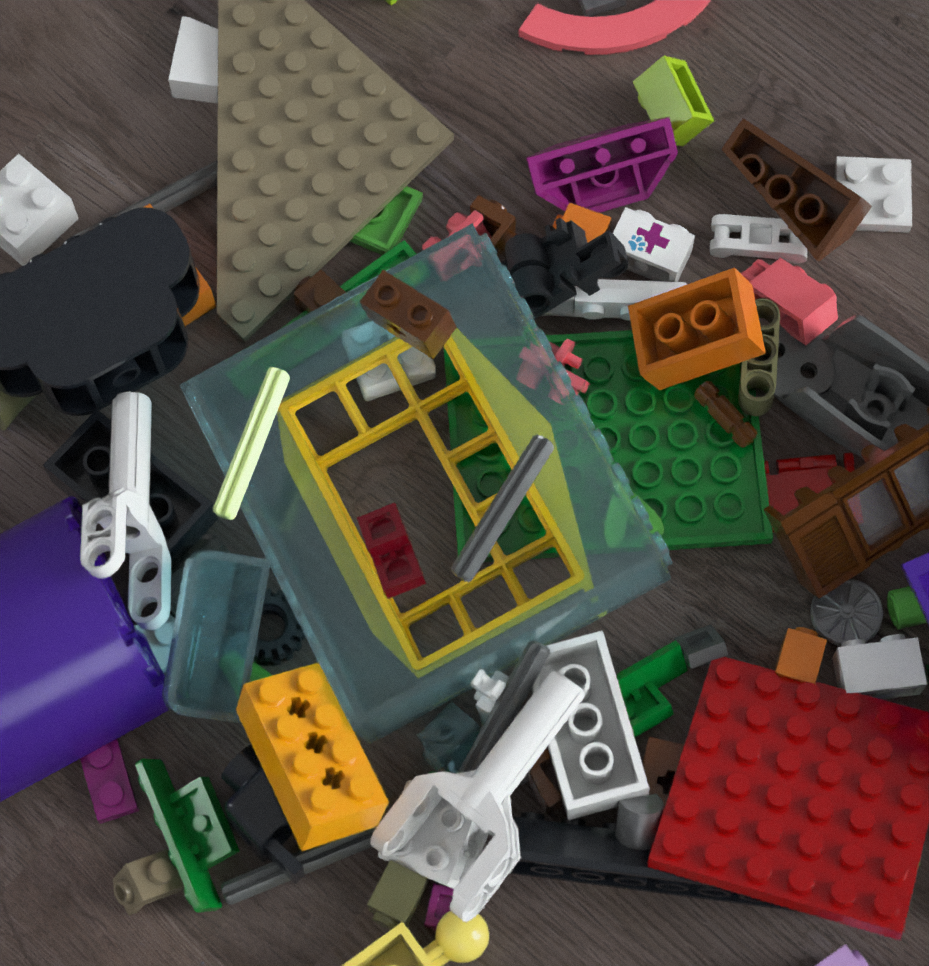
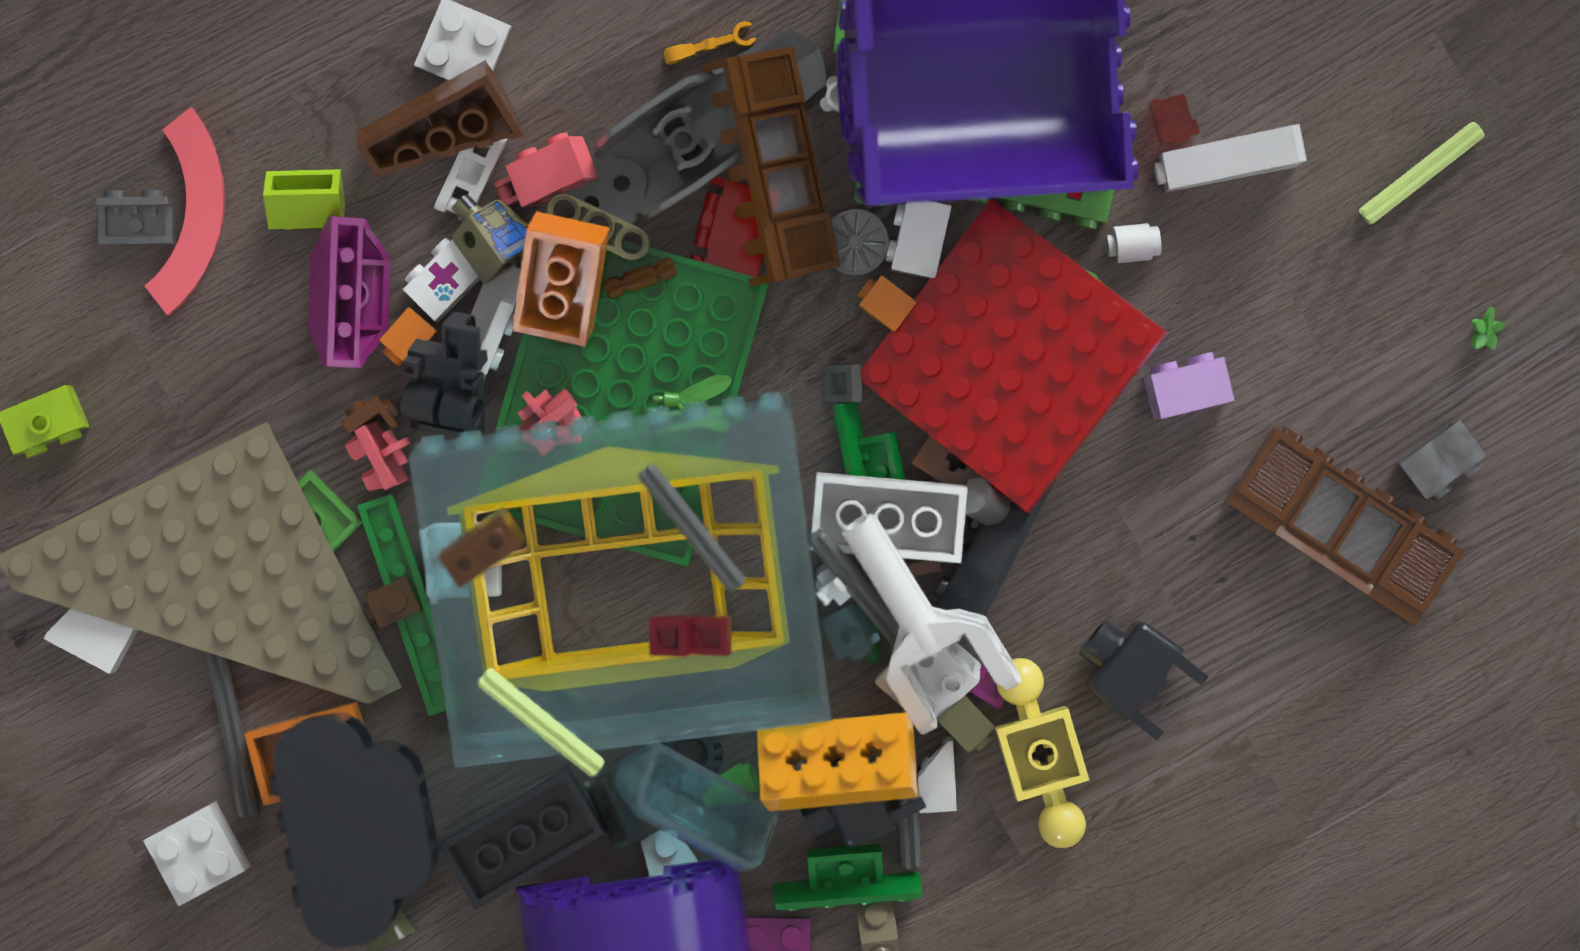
camera: 70 degrees left, 20 degrees up
(128, 516) = (563, 850): white piece -> none
(326, 888) = (937, 780): none -> white slope
(704, 255) = (489, 237): none -> olive torso

